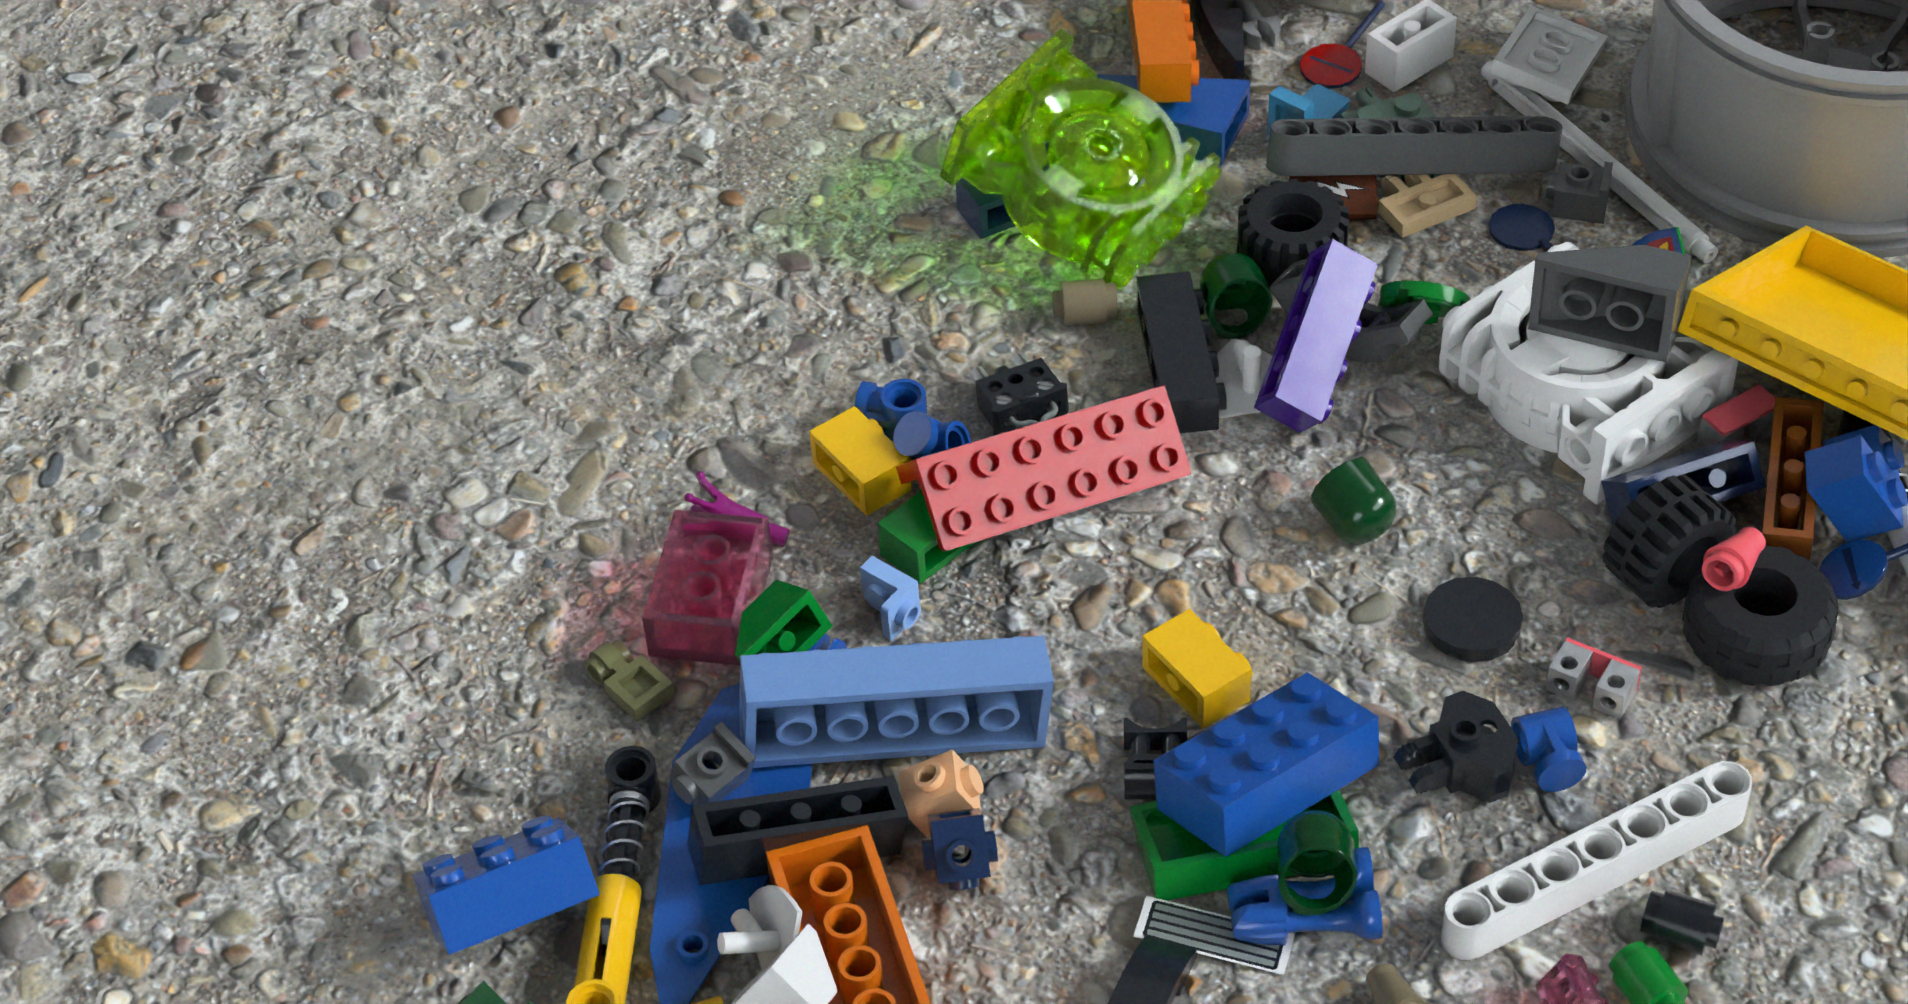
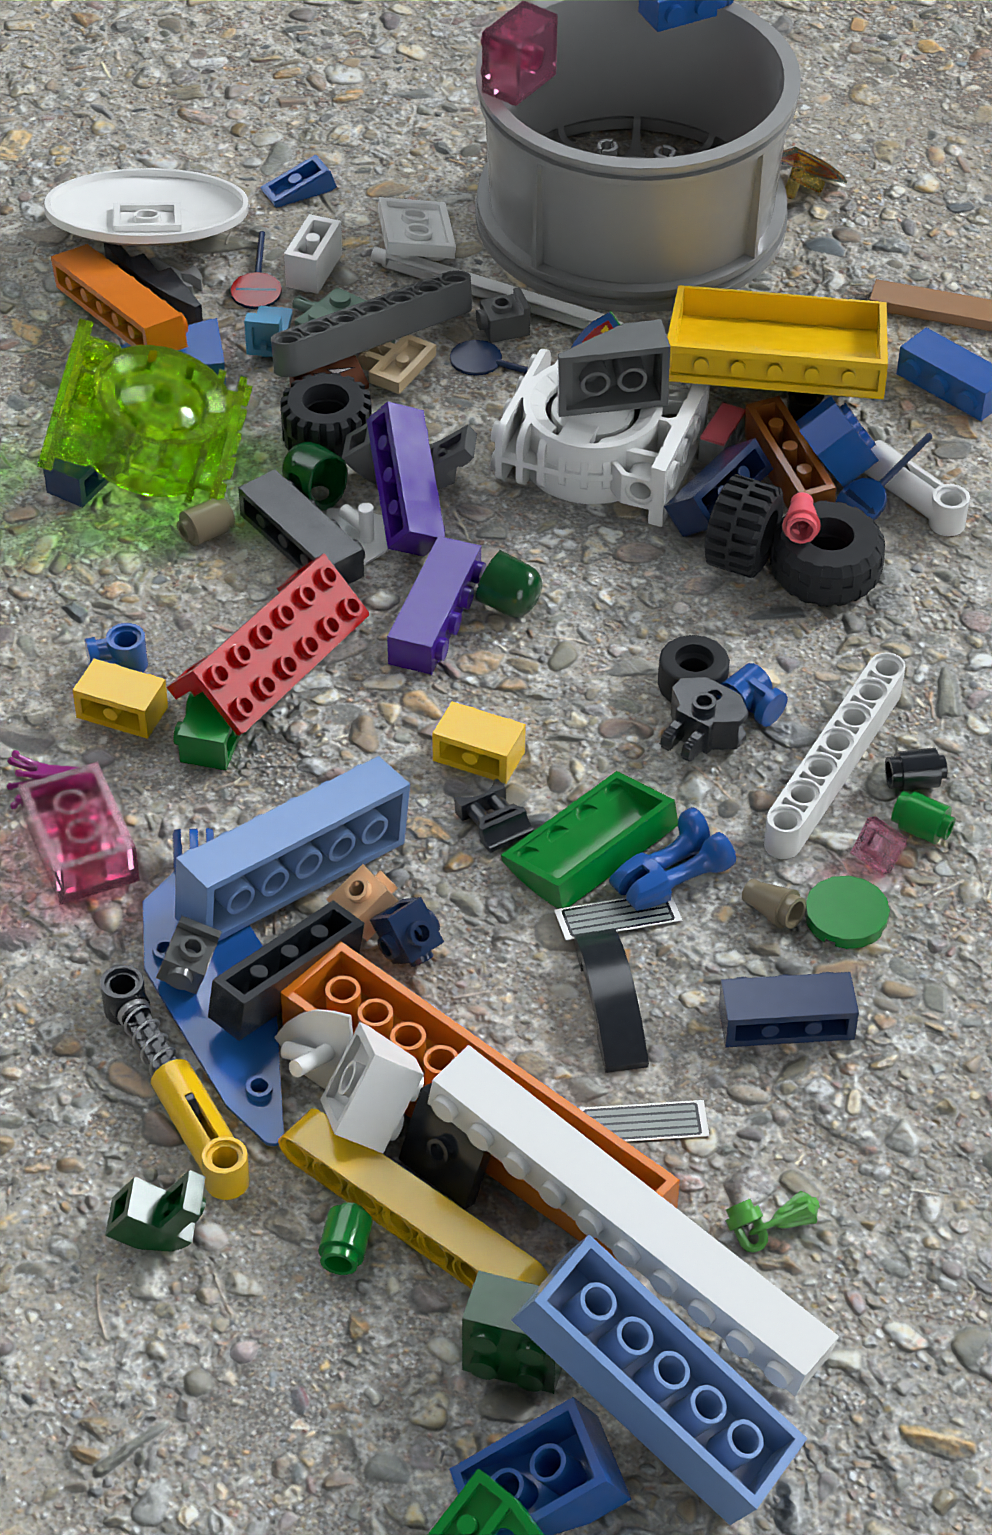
camera: 35 degrees left, 0 degrees up
(504, 883) = (92, 1105): blue piece -> none
(630, 683) = (68, 929): olive plate -> none
(781, 621) = (167, 830): green slope -> none
(891, 594) = (218, 782): light blue bracket -> none
(922, 435) = (169, 659): blue piece -> none
(1019, 394) = (205, 606): black piece -> none
(1258, 492) = (435, 605): none -> brick
(1266, 763) = (583, 782): blue brick -> none
(1317, 847) = (663, 818): dark green helmet -> none
(1437, 296) = (478, 419): green tile -> none
(1472, 618) = (636, 633): black tile -> none
(1505, 667) = (691, 658): none -> black tyre
(1617, 676) = (763, 632): flat silver piece -> none

